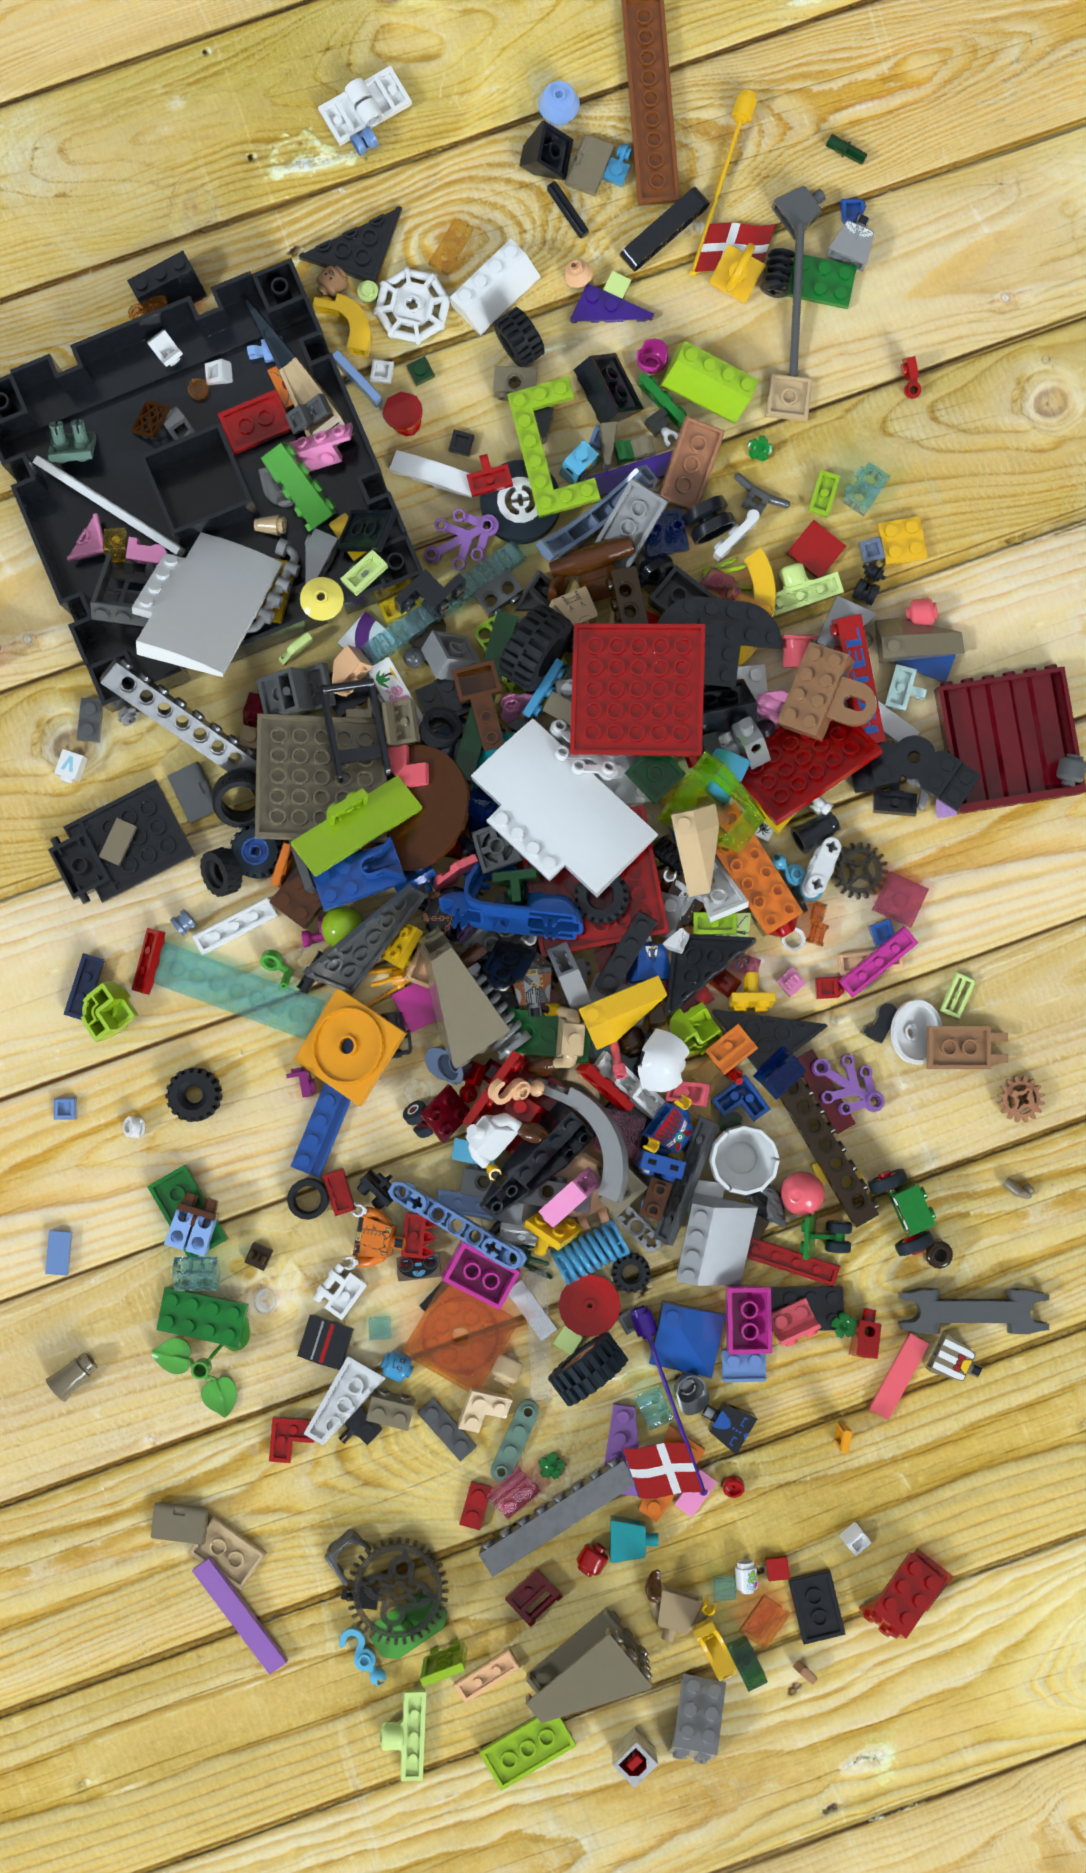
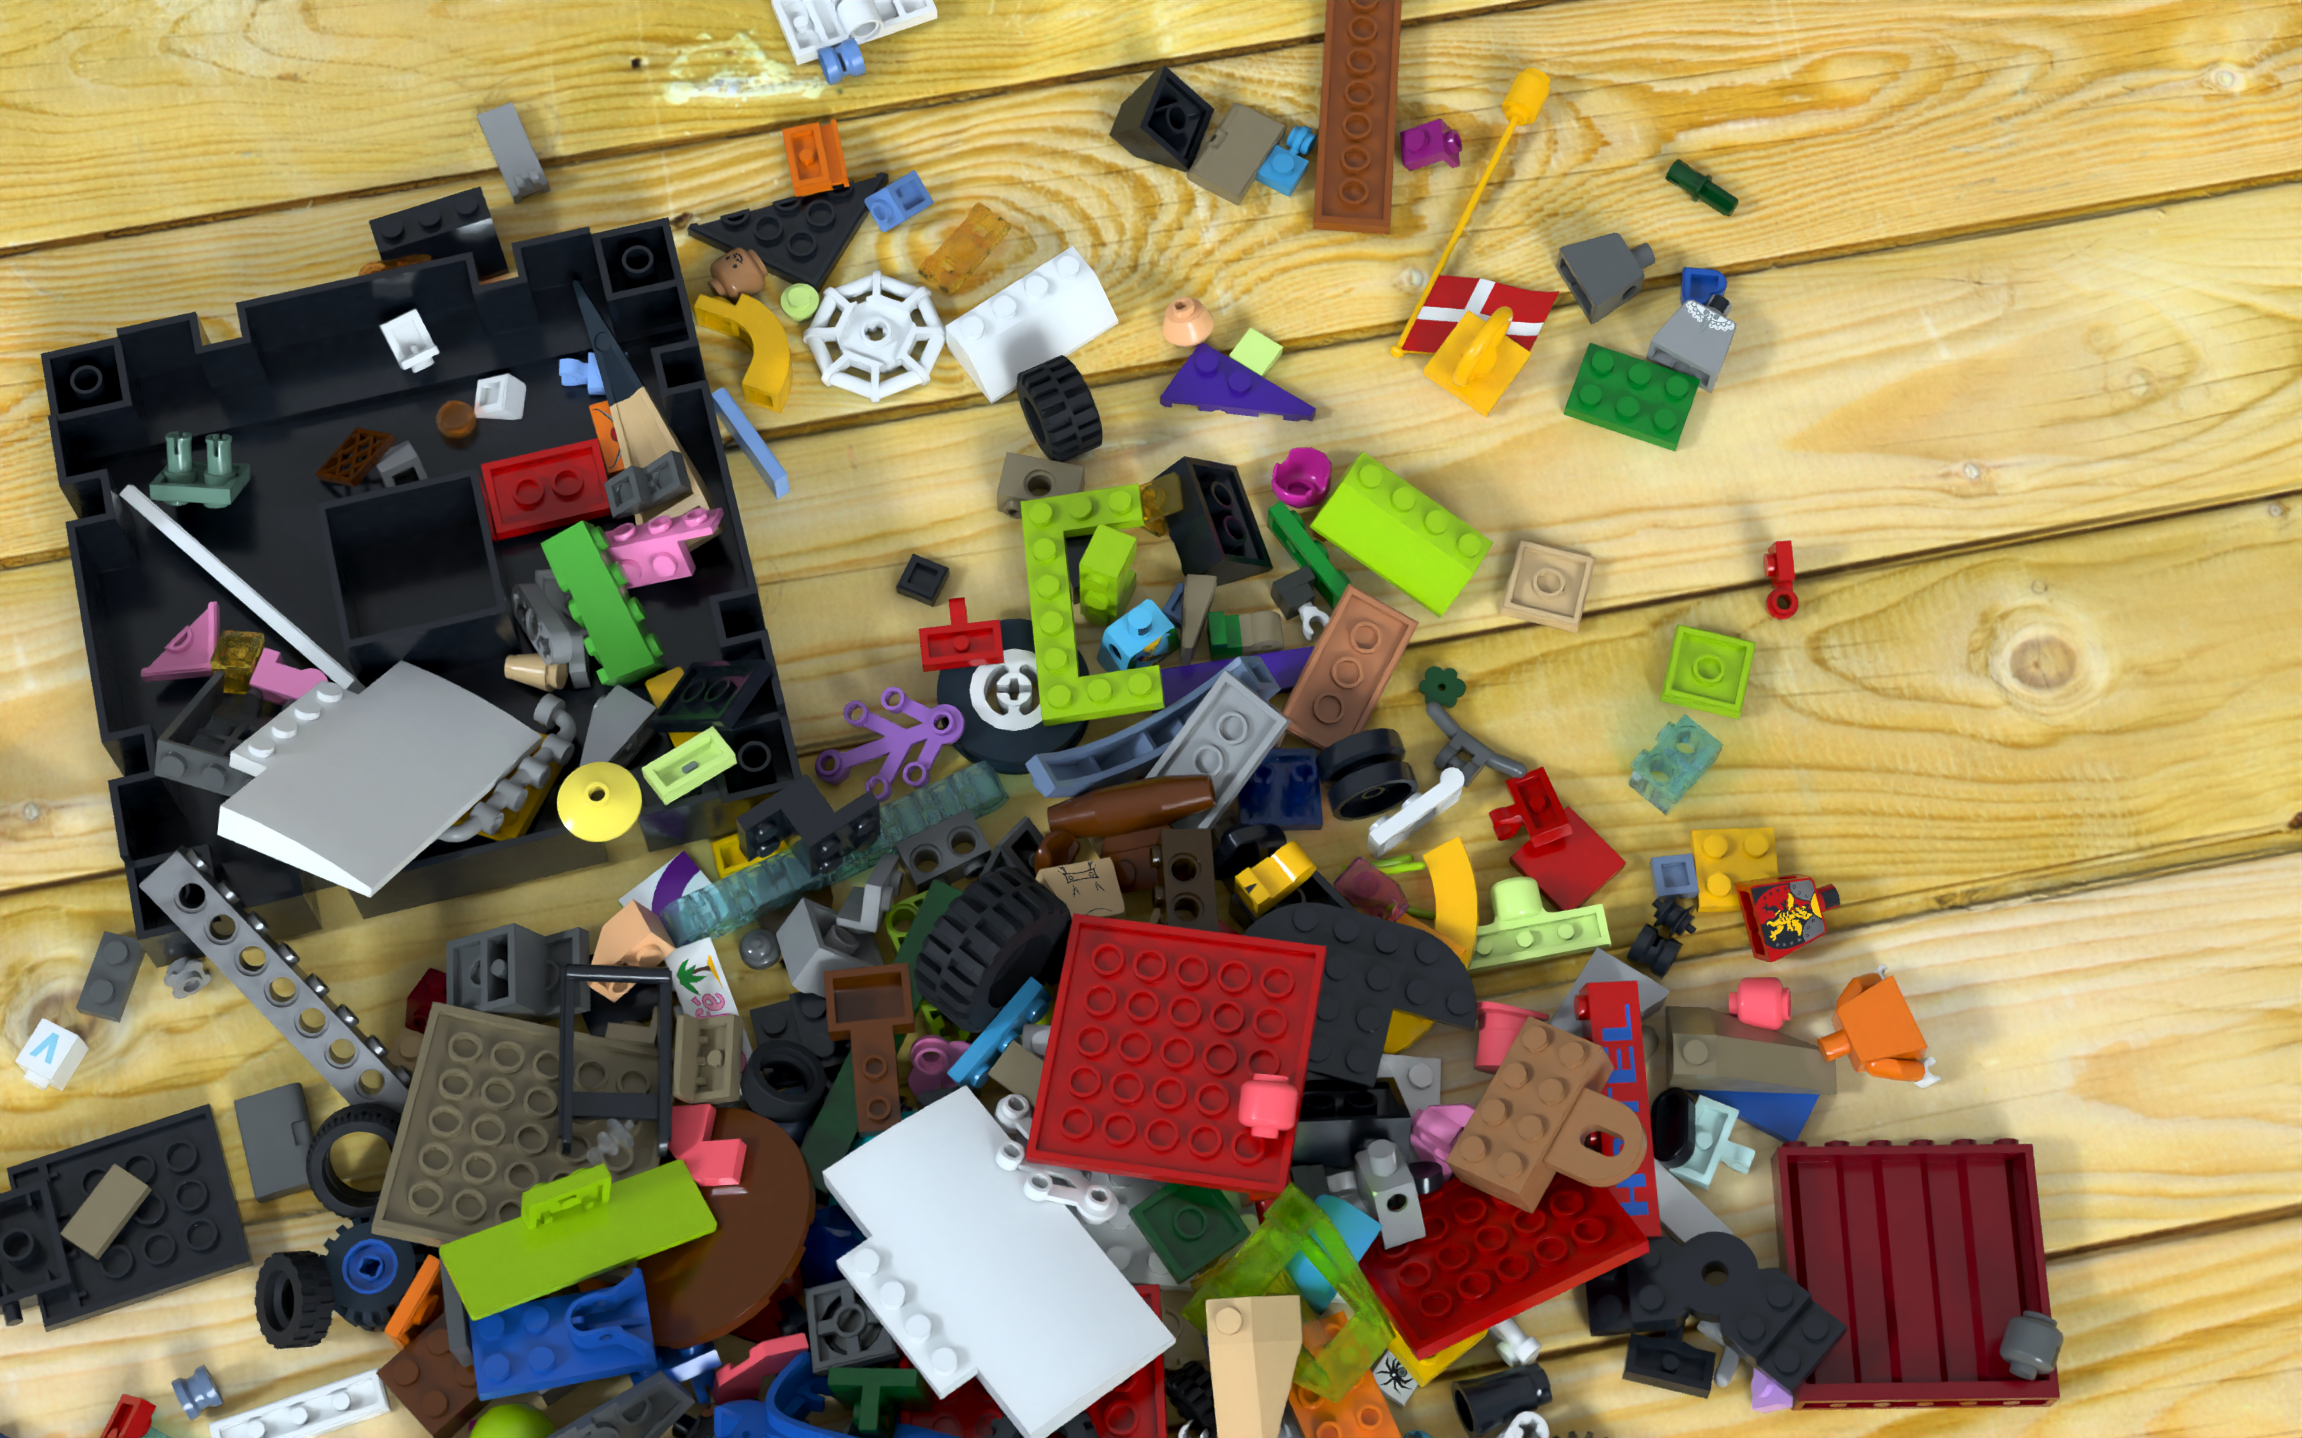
camera: 10 degrees right, 20 degrees down
(194, 223) = (513, 152): none -> light grey hinge
(269, 500) = (541, 623): none -> light grey beam
(291, 517) = (579, 663): none -> light grey tile
(296, 648) = (539, 898): yellowish green tile -> none
(360, 203) = (815, 158): none -> orange plate
(360, 773) = (608, 1143): none -> clear hair
(382, 371) = (799, 439): white tile -> none
(403, 413) = (824, 513): red hat -> none
(411, 223) = (898, 201): none -> medium blue bracket
(420, 371) = (870, 447): dark green plate -> none
(431, 472) = (856, 621): white slope -> none
(466, 626) = (868, 905): none -> light grey bracket
(558, 103) = (1197, 47): light blue cone -> none
(560, 430) = (1106, 575): none -> lime arch
(567, 209) = (1185, 219): black axle -> none
(581, 381) = (1160, 499): none -> clear yellow bracket
(664, 229) = (1355, 272): black beam -> none
(670, 585) = (1273, 878): none -> yellow leg
(688, 712) = (1267, 1105): none -> coral head
(695, 145) = (1429, 145): none -> magenta bracket
(742, 458) = (1447, 679): none -> dark green plant
(760, 448) = (1482, 665): green plant -> none
(775, 272) = (1552, 369): black piece -> none
(796, 524) = (1534, 807): none -> red plate
(797, 292) = (1582, 419): dark grey piece -> none
(824, 493) = (1593, 762): lime plate -> none
(877, 434) = (1707, 671): none -> lime plate
(885, 683) = (1673, 1127): none -> black tile
(929, 562) = (1784, 913): none -> torso
(982, 618) = (1878, 1032): none -> orange torso

